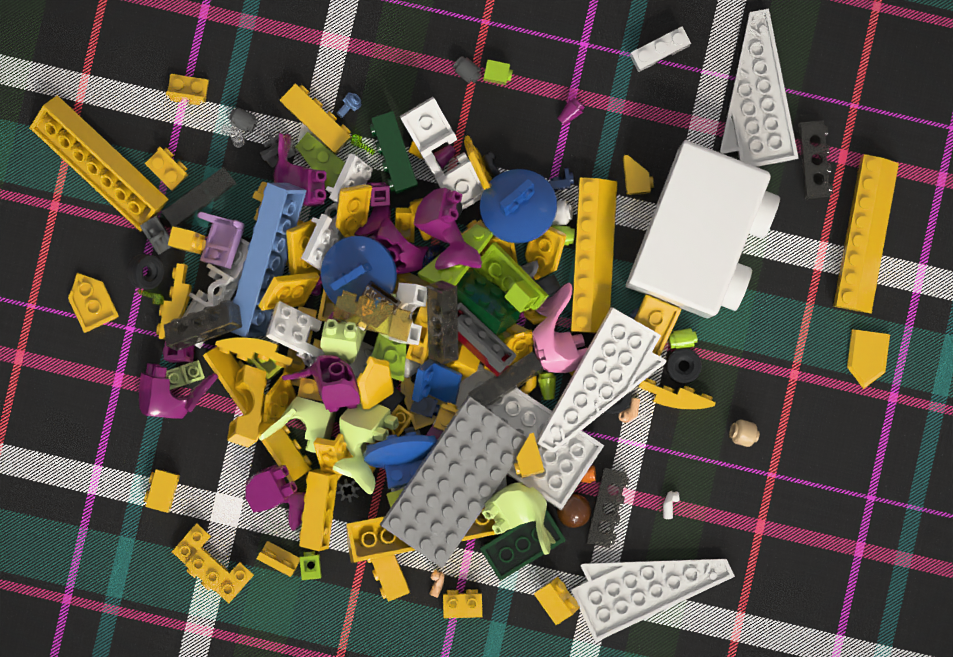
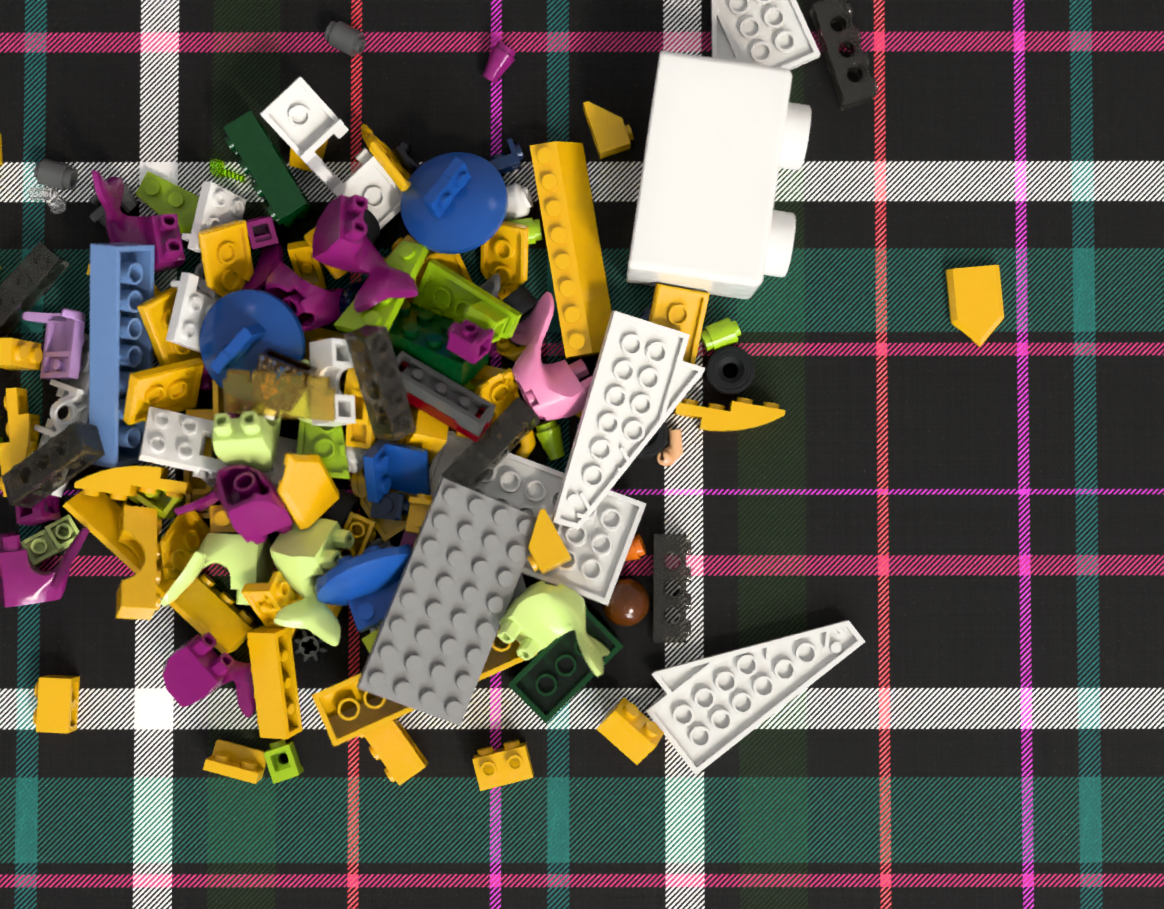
camera: 10 degrees left, 0 degrees up
(209, 569) = (143, 795): yellow bracket -> none
(315, 118) = (154, 150): yellow brick -> none
(352, 101) = (199, 117): medium blue plate -> none
(438, 584) = (464, 744): light nougat arm -> none
(444, 155) = (340, 161): magenta cone -> none
(497, 72) = (386, 32): lime brick -> none
(509, 307) = (469, 340): none -> magenta brick
(668, 504) = (752, 564): white arm -> none
(744, 433) = (833, 443): tan head -> none
(866, 234) = (934, 136): yellow slope -> none

